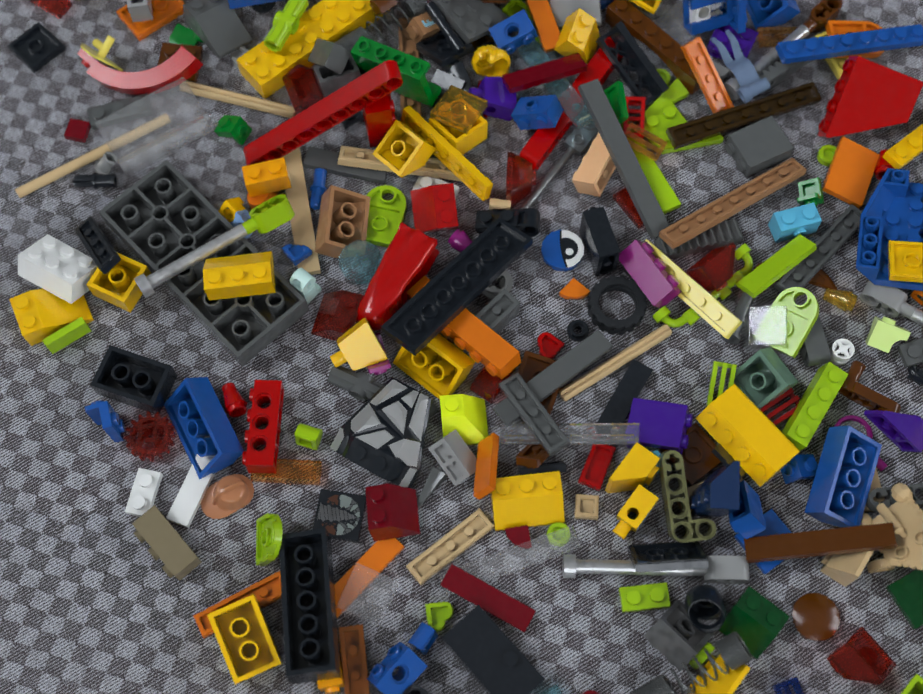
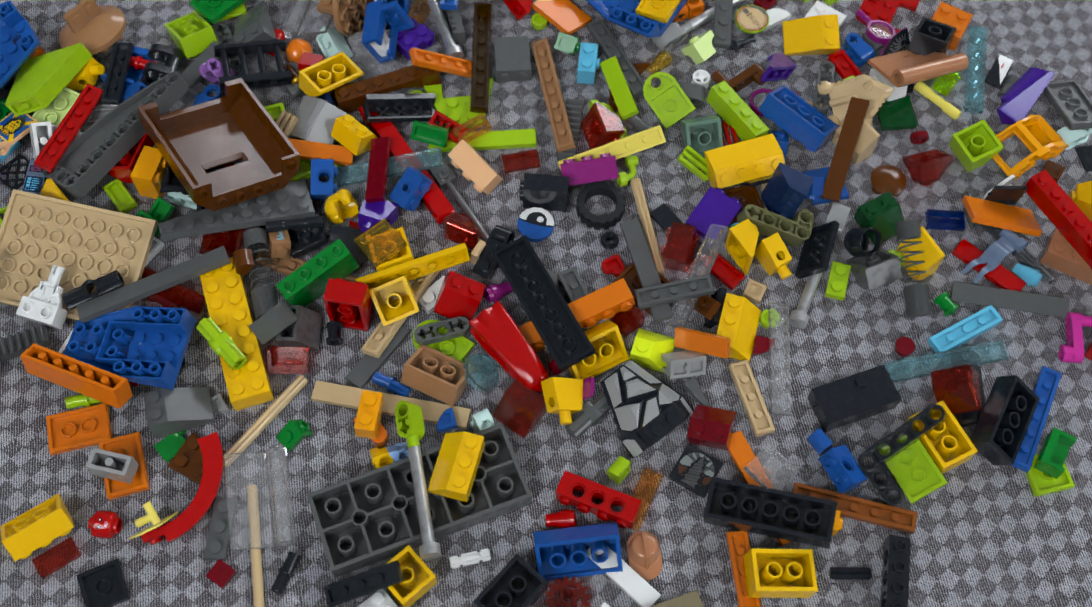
camera: 70 degrees left, 5 degrees down
(89, 20) = (105, 524): none -> red head
(104, 165) = (275, 558): light grey pin -> none
(164, 331) = (470, 558): none -> white axle
(268, 538) = (699, 527): lime tile -> none
(325, 113) = (340, 344): red beam -> none
(391, 199) = (426, 329): none -> dark grey beam
(438, 614) = (802, 426): lime tile -> none
(488, 597) = (803, 384): dark red tile -> none
(574, 290) = (574, 230): orange tile -> none
(593, 400) = (679, 247): none -> clear red brick
(623, 157) = (484, 145): dark grey tile -> none
(743, 70) = (444, 37): sand blue flag -> none
(767, 325) = (663, 113): clear piece -> none
(899, 637) = (919, 137): none -> dark red tile

